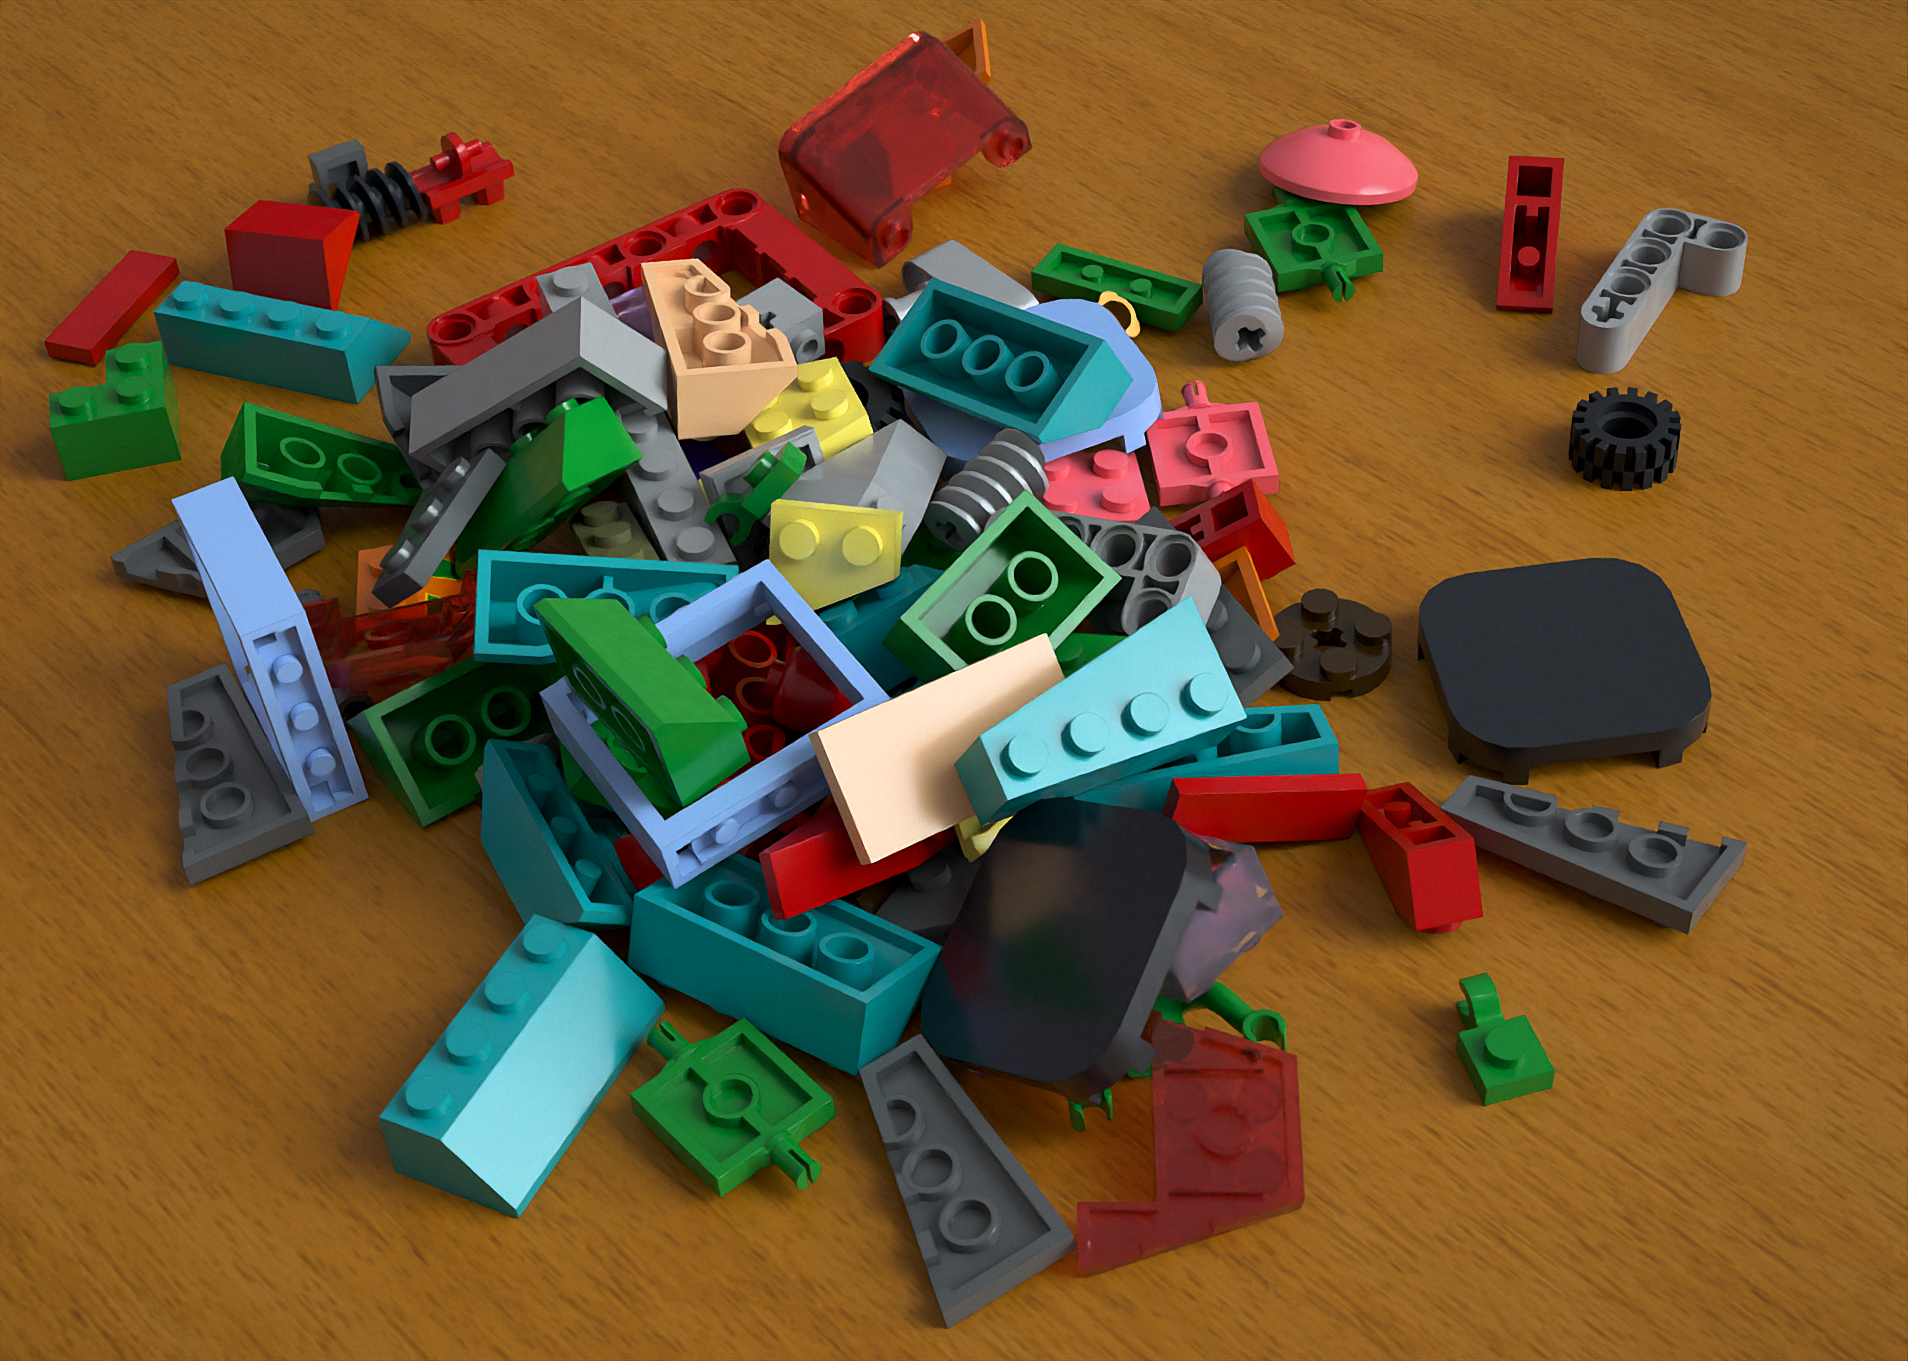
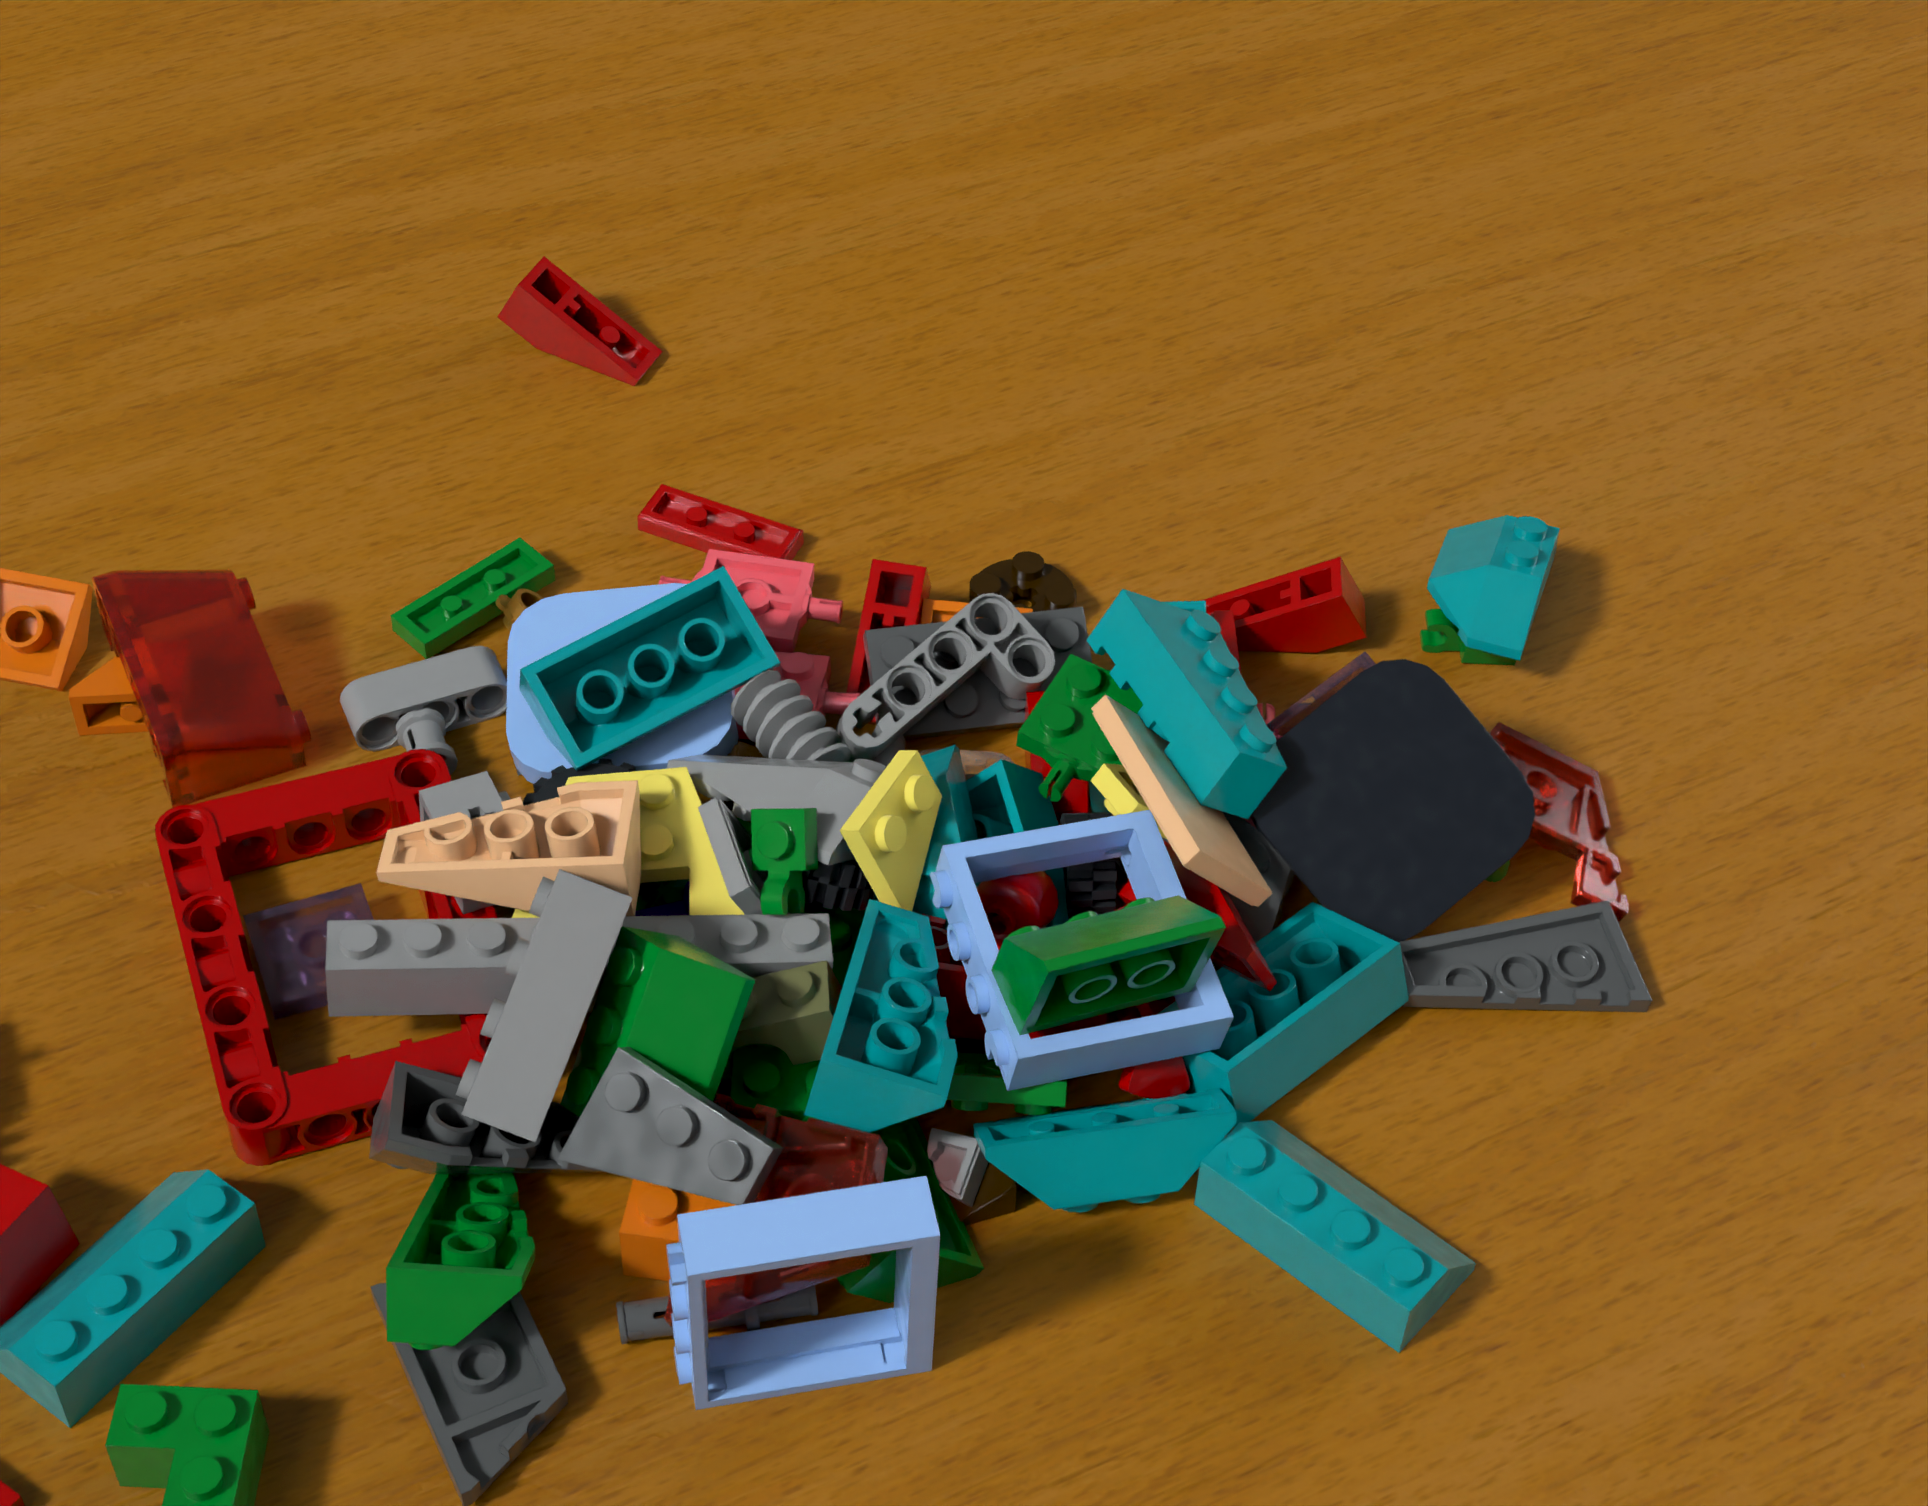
camera: 80 degrees left, 5 degrees up
(227, 778) = (866, 1418): dark grey wing -> none
(732, 1106) = (1414, 1088): green plate -> none
(1006, 587) = (1005, 736): green slope -> none
(1241, 305) = (567, 522): light grey piece -> none
(1311, 415) = (716, 526): none -> red tile
(1313, 244) = (489, 456): green plate -> none
(1339, 165) = (396, 406): coral dish -> none
(1562, 665) = (1113, 478): black tile -> none
(1569, 1026) = (1493, 580): none -> teal wedge
(1588, 849) = (1312, 523): dark grey wing -> none
(1624, 438) = (864, 382): black tyre -> none
(1662, 254) = (660, 271): light grey beam -> none

